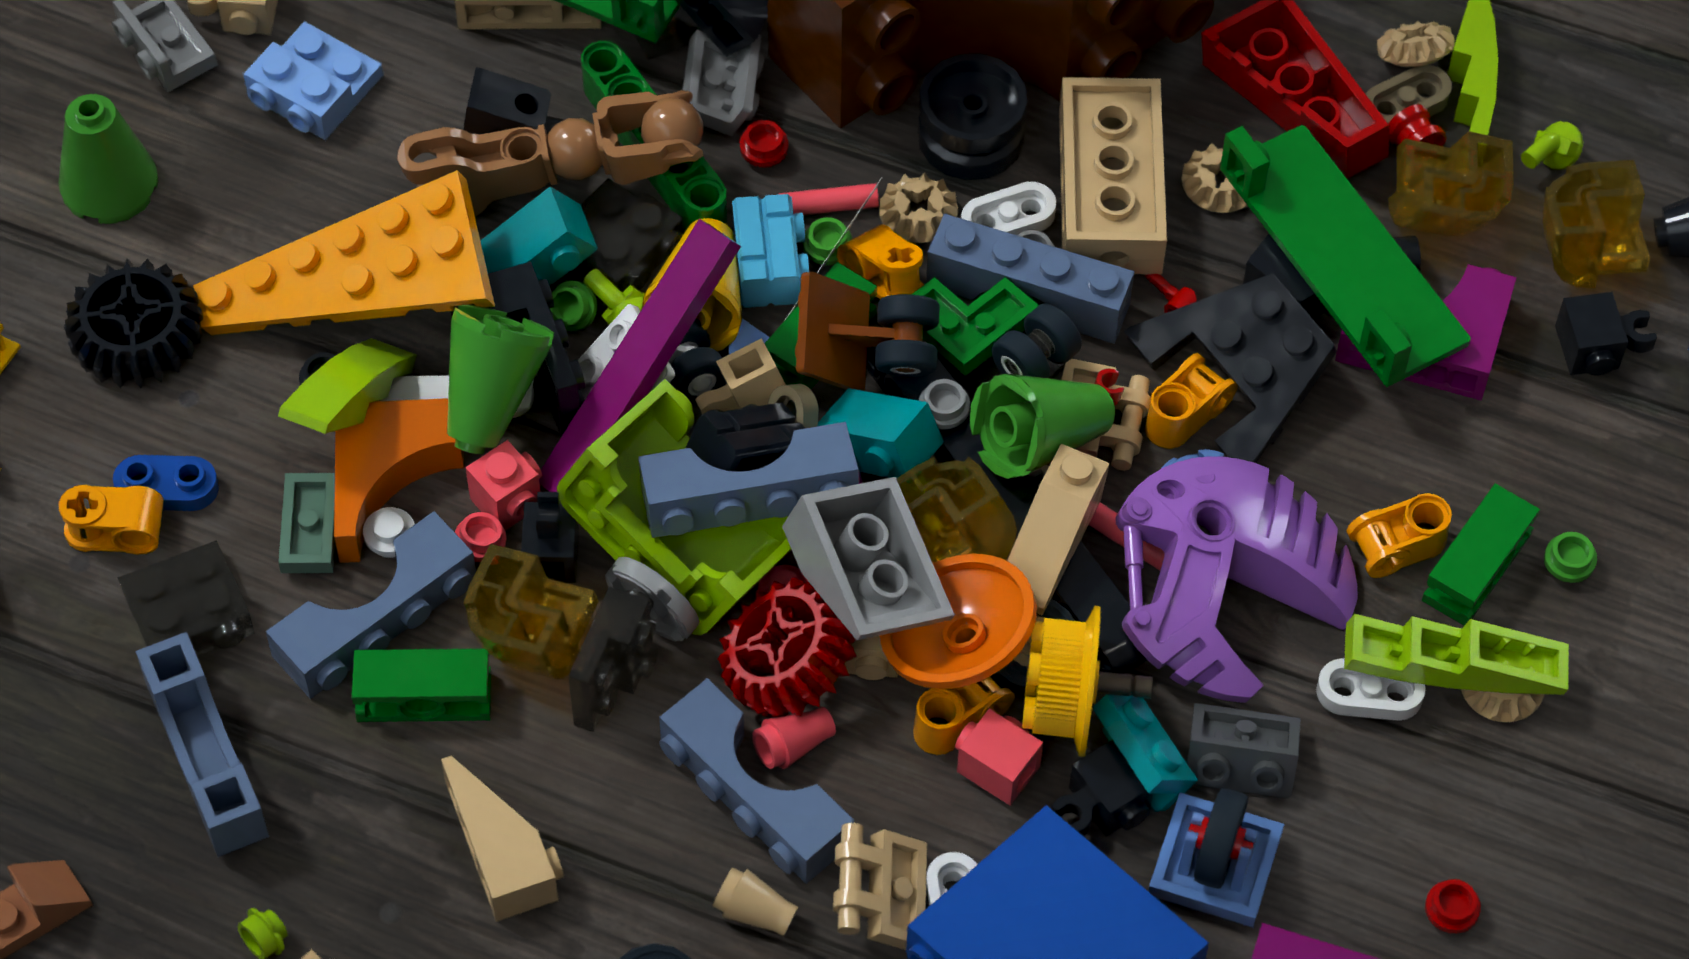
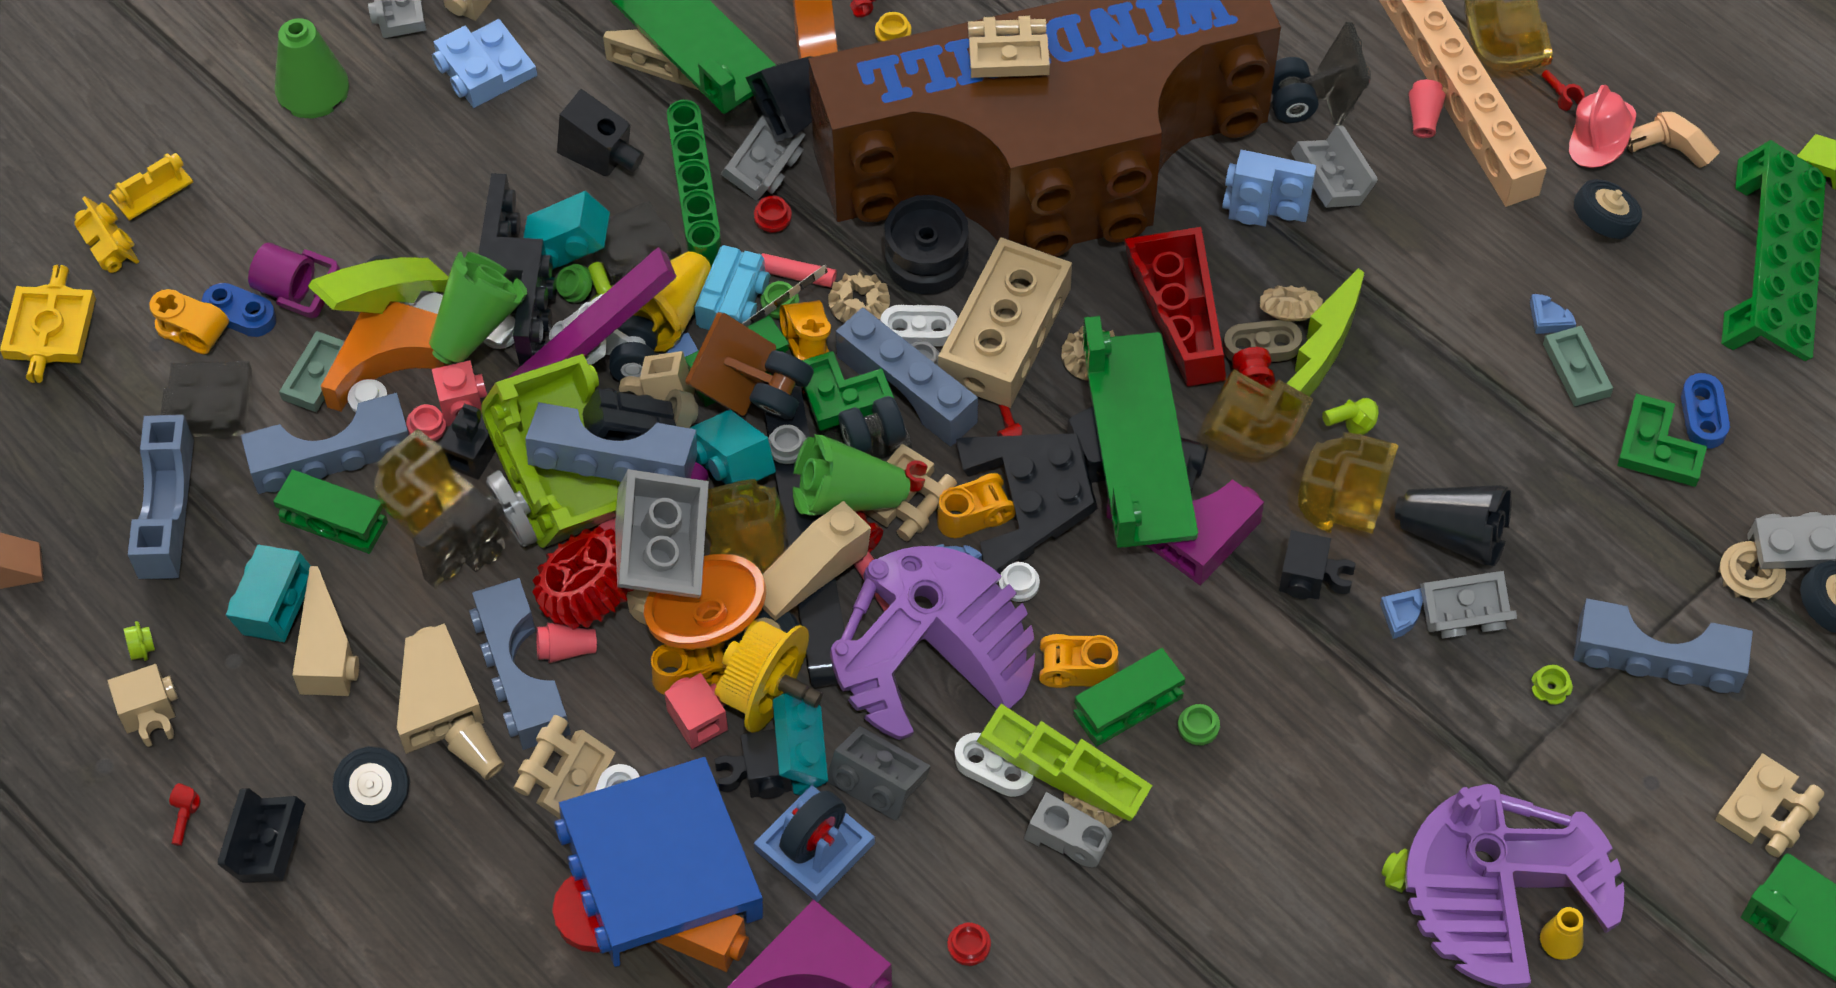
camera: 25 degrees right, 0 degrees up
(106, 309) = (279, 200): black gear -> none
(208, 419) = (287, 276): none -> magenta piece
(372, 265) = (435, 205): light orange wing -> none
(403, 811) = (269, 593): none -> teal brick
(529, 158) = (584, 166): medium nougat piece -> none
(669, 849) = (433, 689): none -> tan slope
(1285, 461) = (1022, 579): none -> white plate
(1495, 733) = (1068, 831): none -> light grey leg

